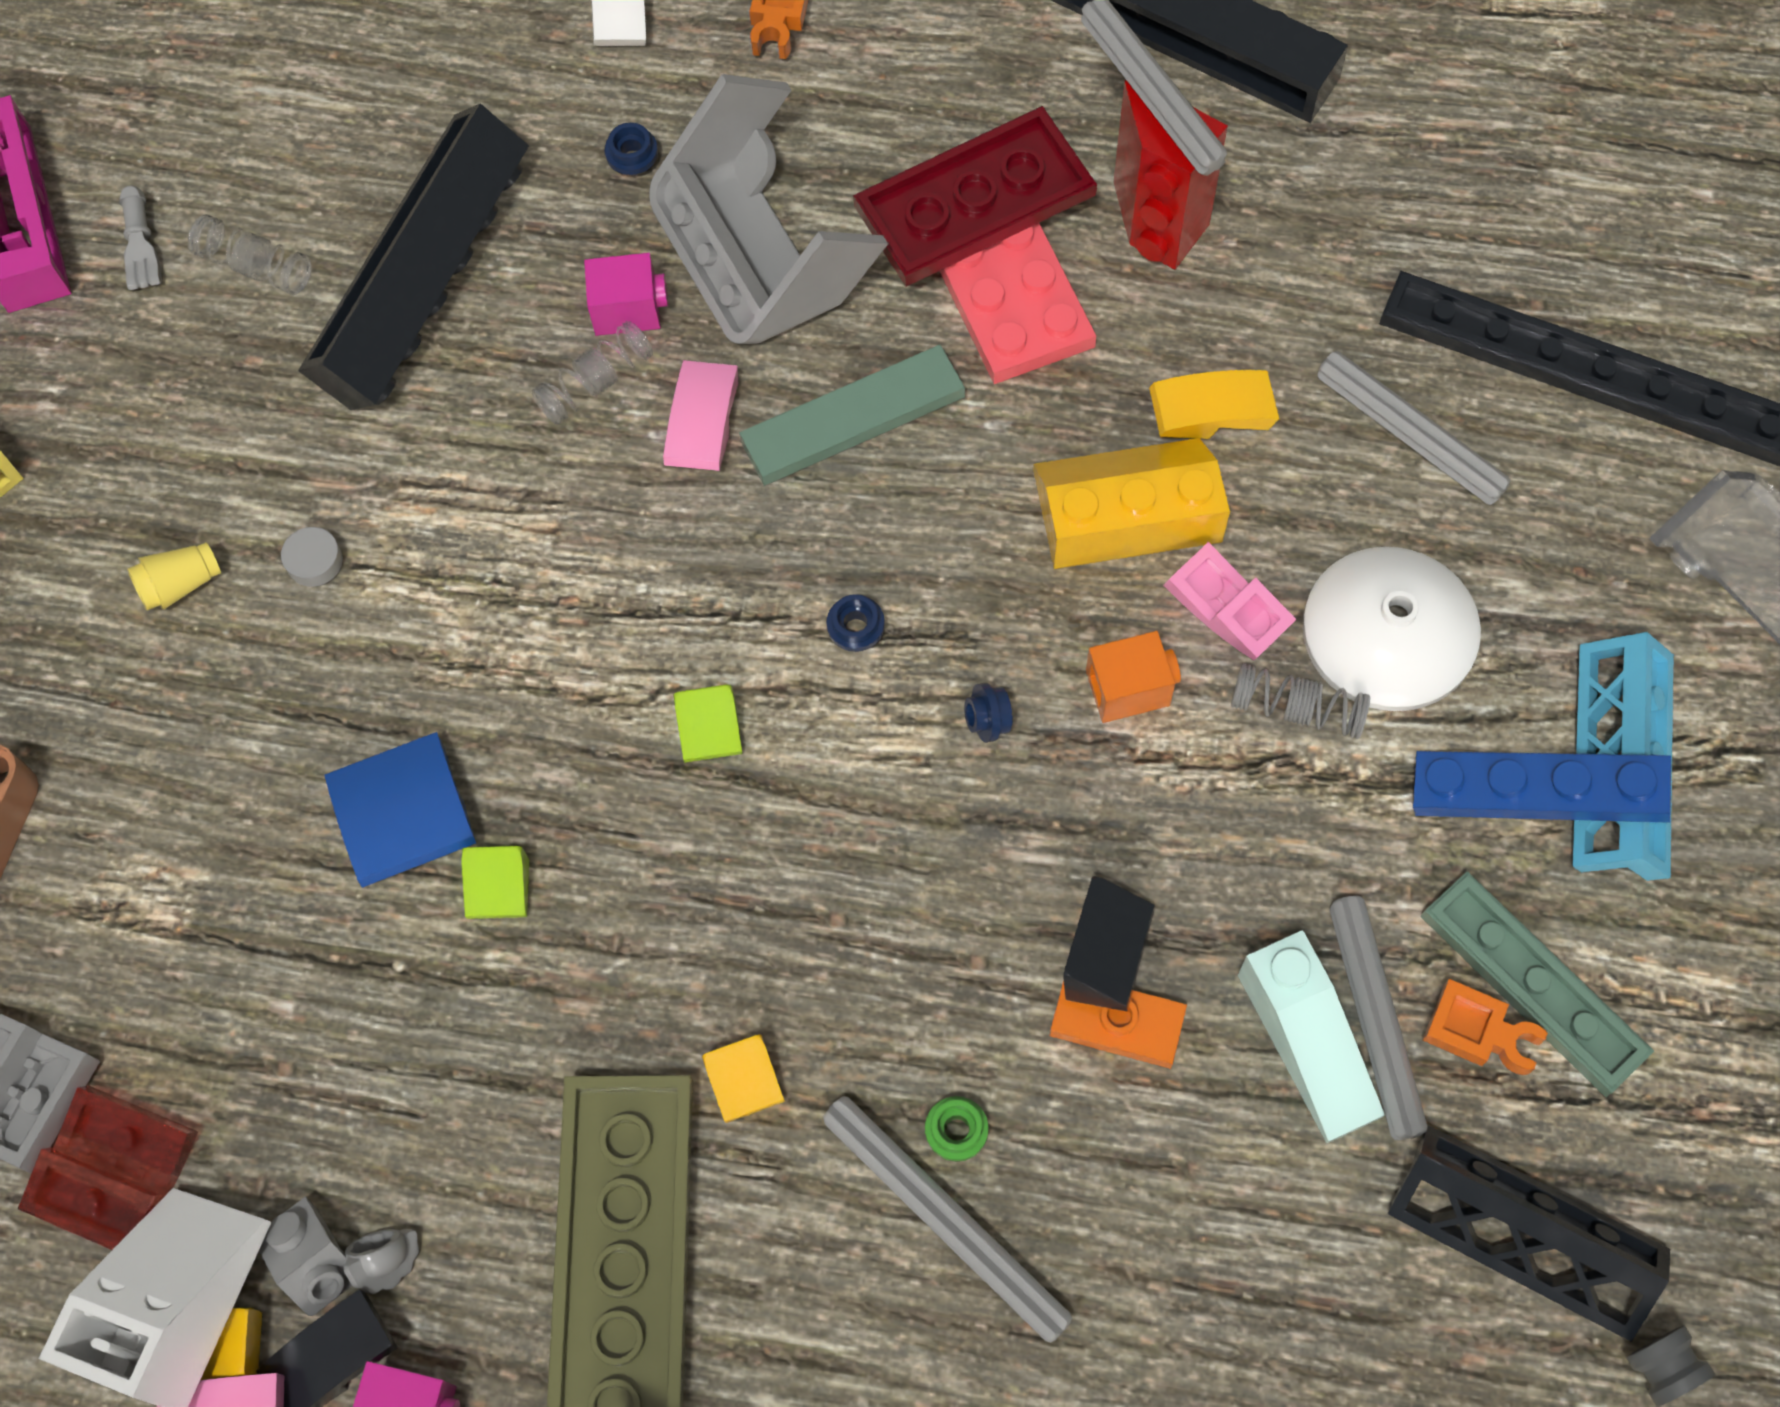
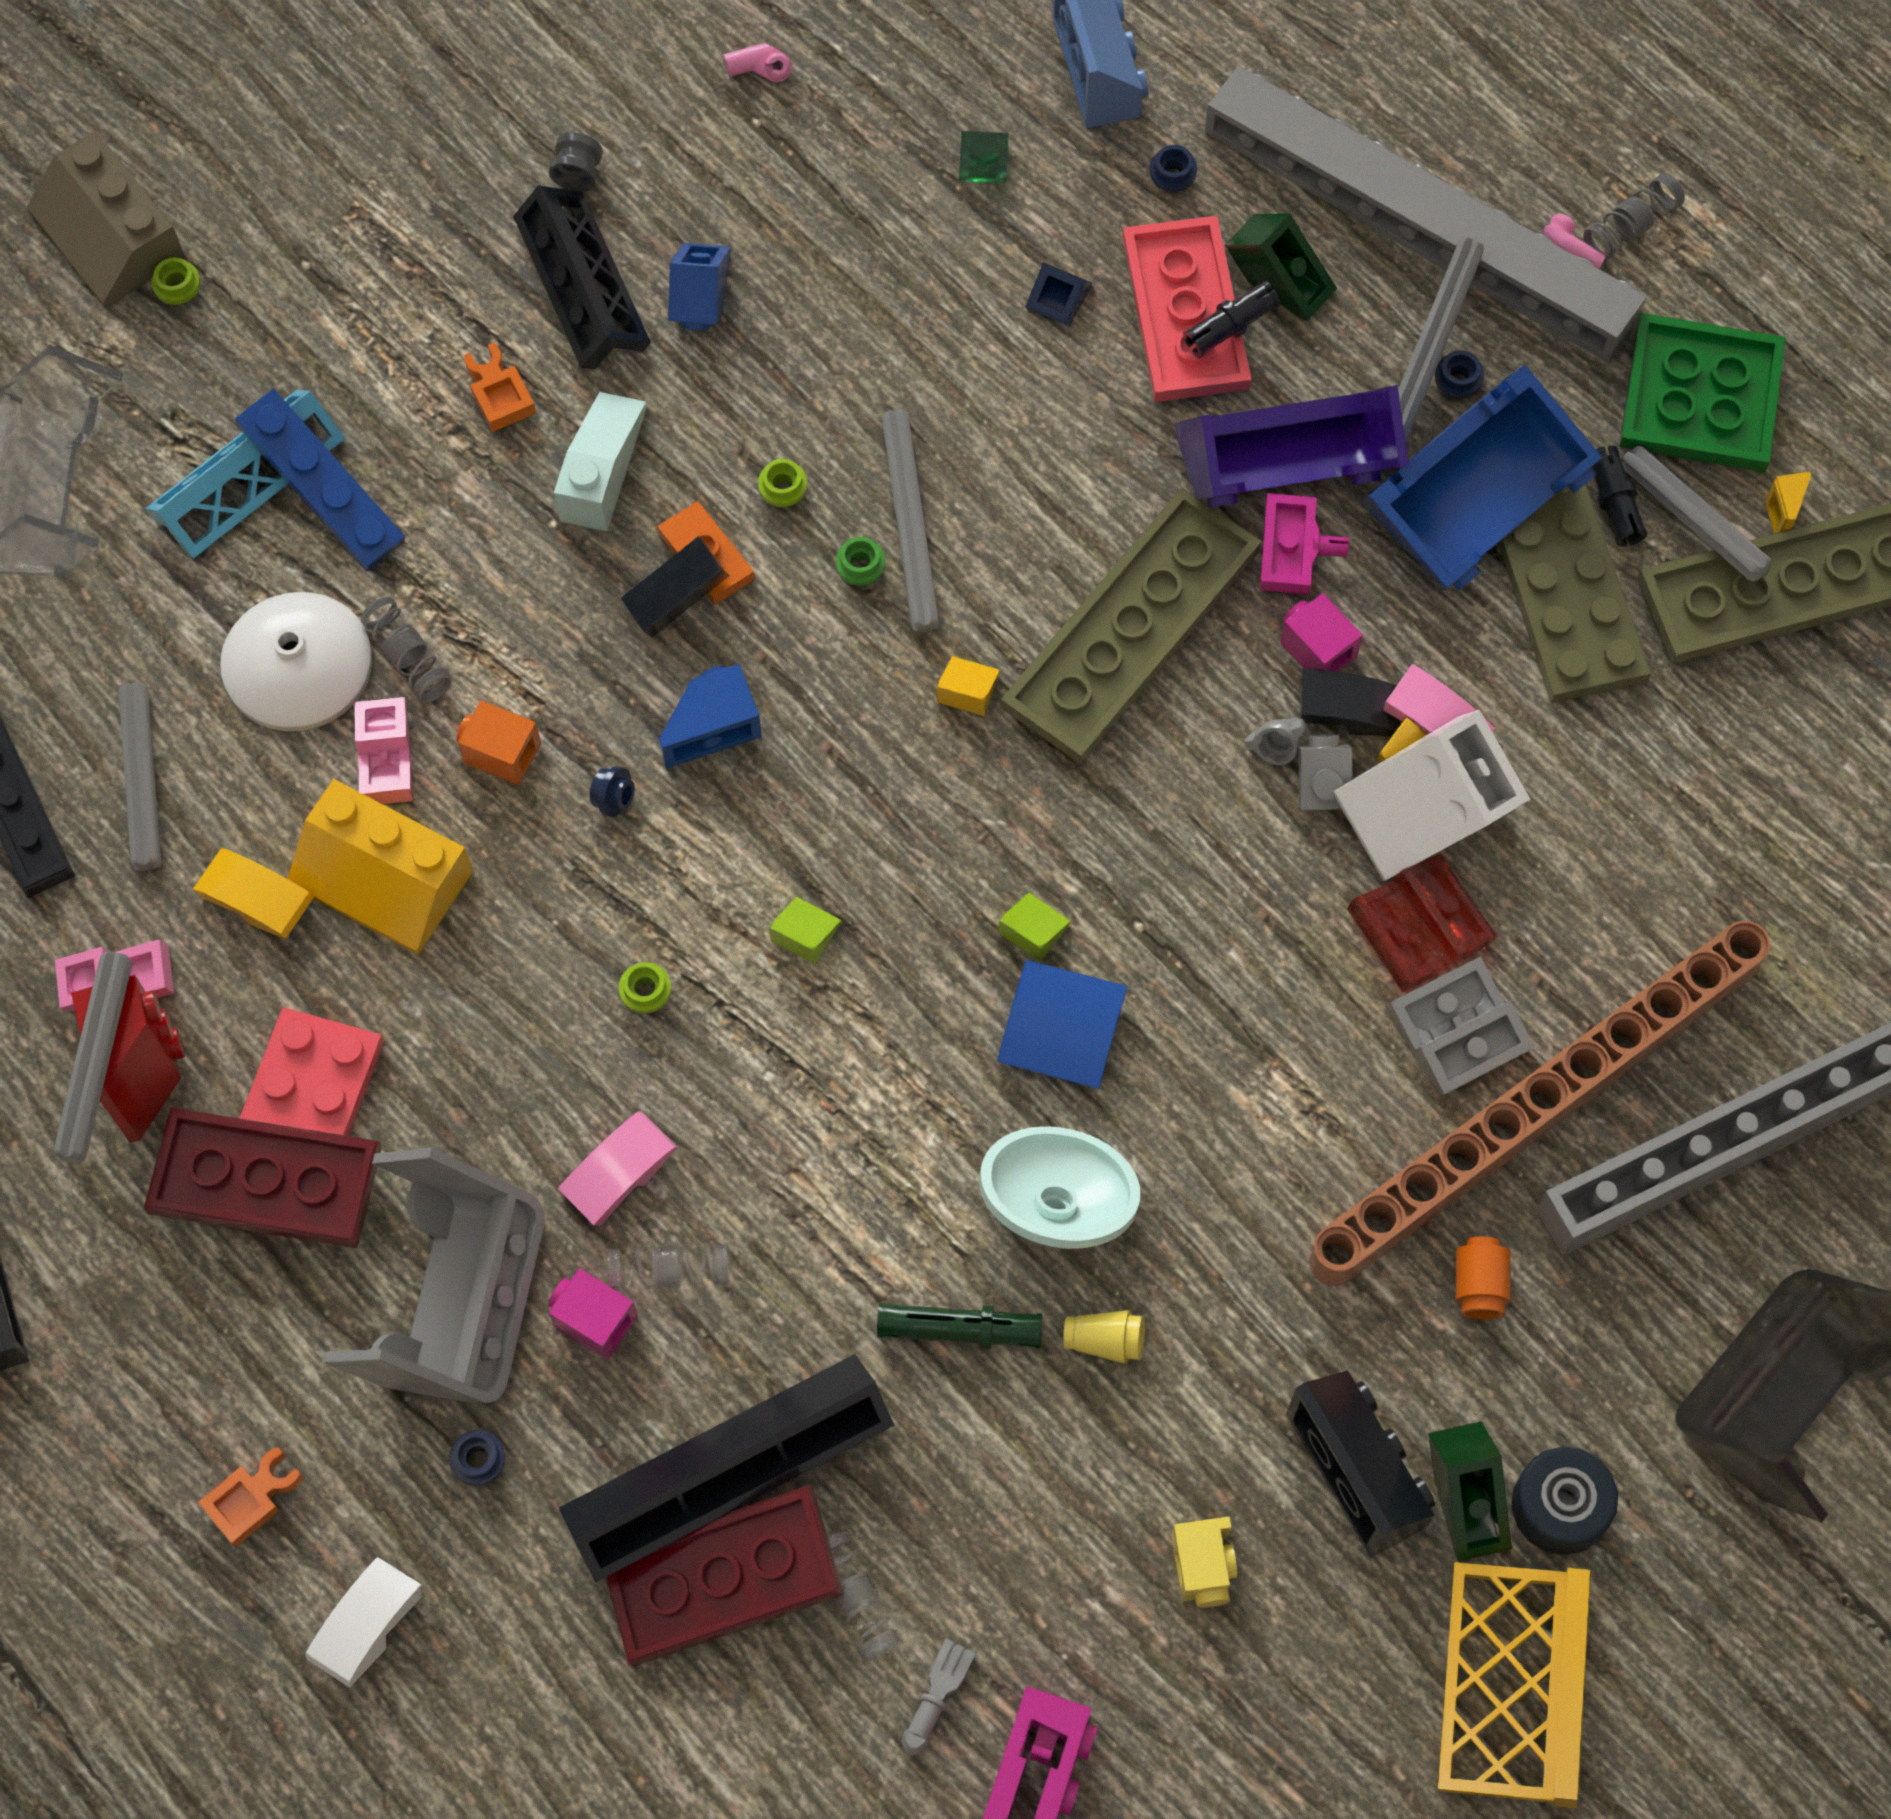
camera: 145 degrees left, 0 degrees up
(244, 654) = (1059, 1187): none -> light aqua dish
(308, 497) = (960, 1325): none -> dark green pin
(311, 556) = (991, 1278): light grey tile -> none
(347, 200) = (726, 1577): none -> dark red tile
(807, 557) = (638, 975): none -> lime plate
(852, 414) = (508, 1087): sand green tile -> none
(852, 608) = (644, 911): dark blue plate -> none
(958, 851) = (710, 717): none -> blue slope
(1108, 1135) = (782, 471): none -> lime plate
(1258, 267) = (149, 964): none -> bright pink slope
(1378, 1018) = (549, 443): light grey axle -> none
(1401, 1319) = (698, 285): none -> blue slope
(1537, 984) = (437, 396): sand green tile -> none

